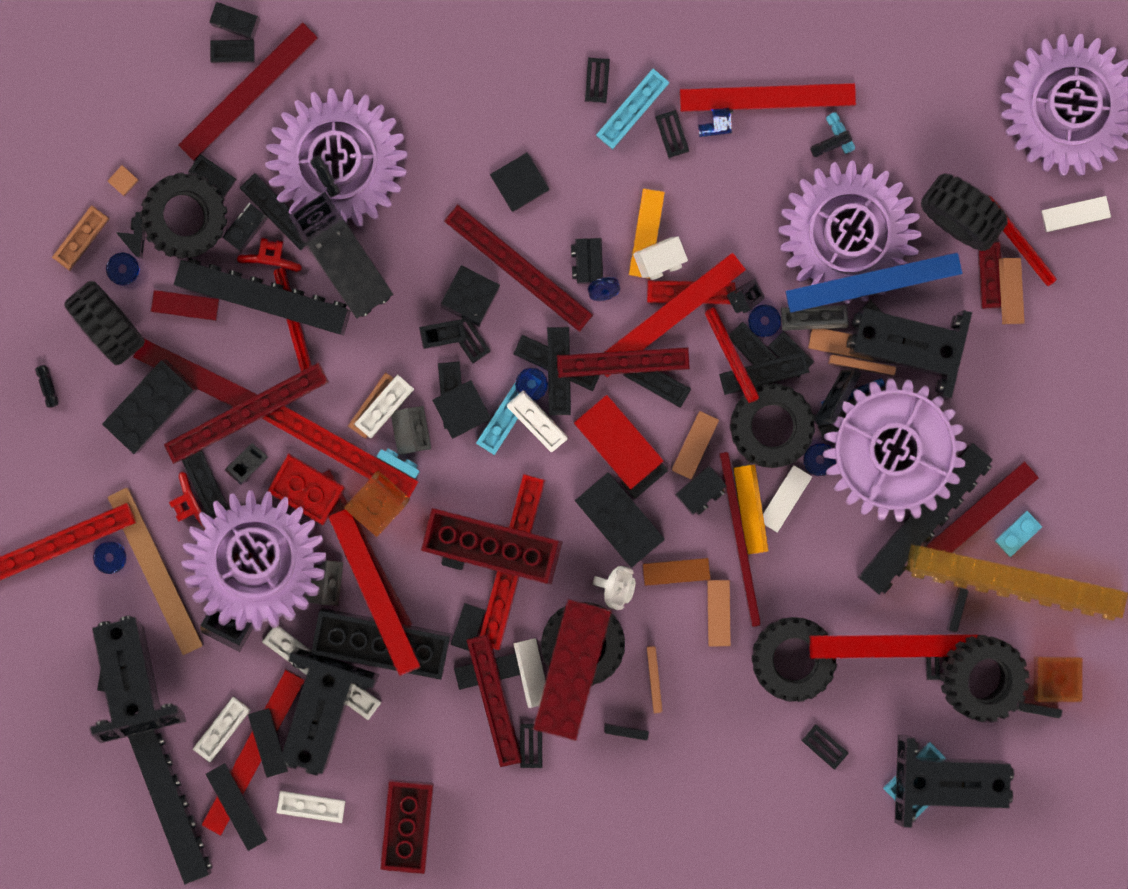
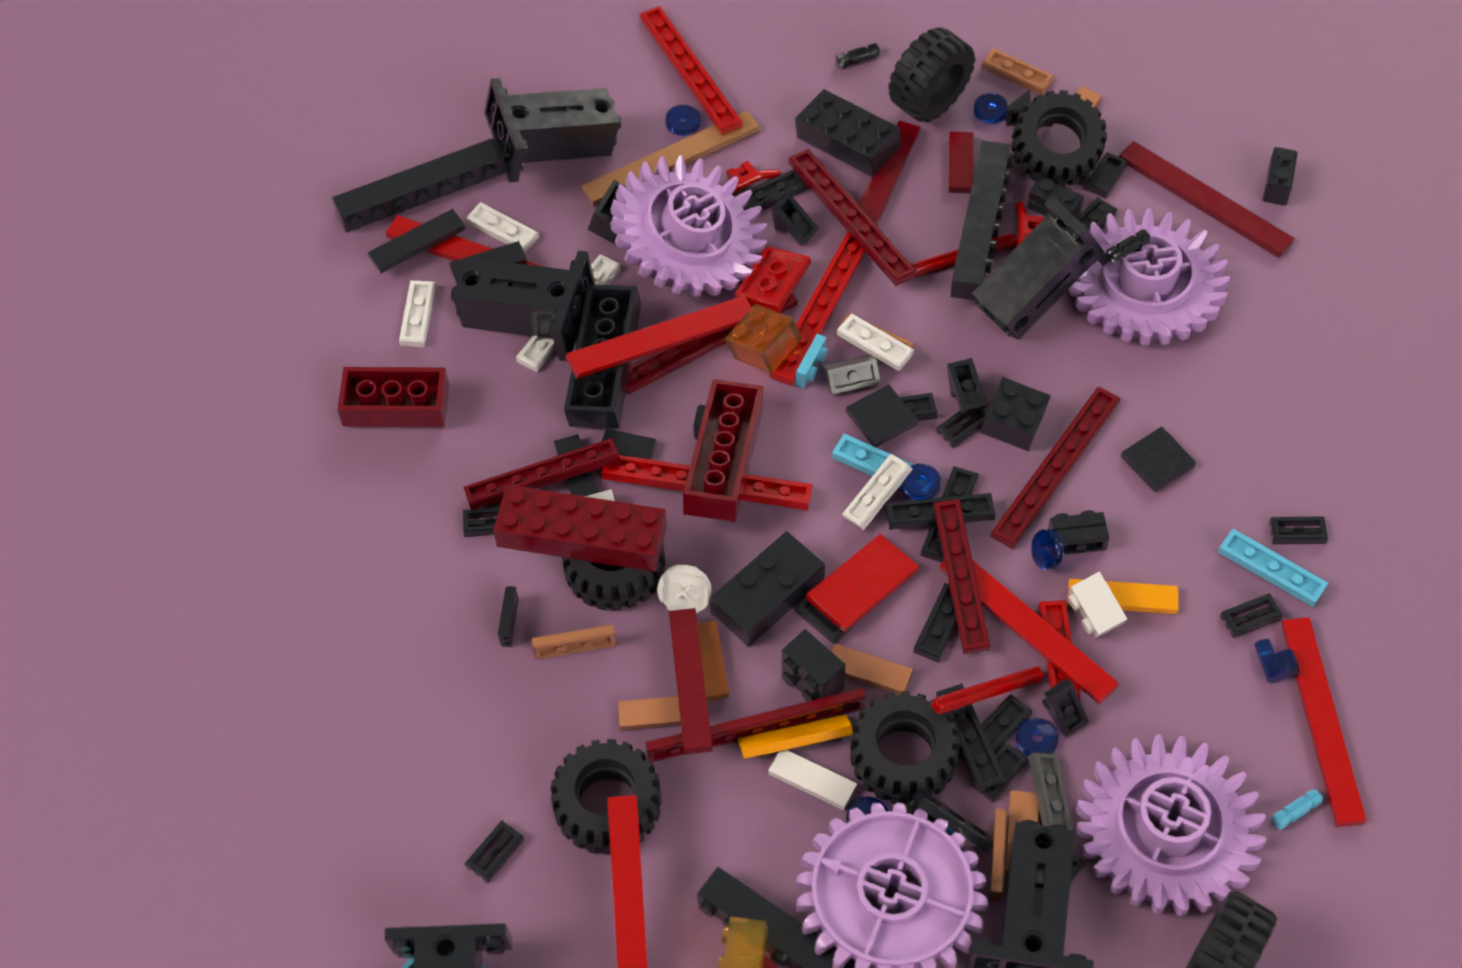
camera: 85 degrees right, 30 degrees down
(232, 51) = (1246, 182): black tile -> none
(329, 586) = (667, 305): dark grey panel -> none
(701, 588) = (690, 681): none -> dark red tile
(831, 143) = (1281, 794): black axle -> none
(873, 282) = (1111, 854): blue tile -> none

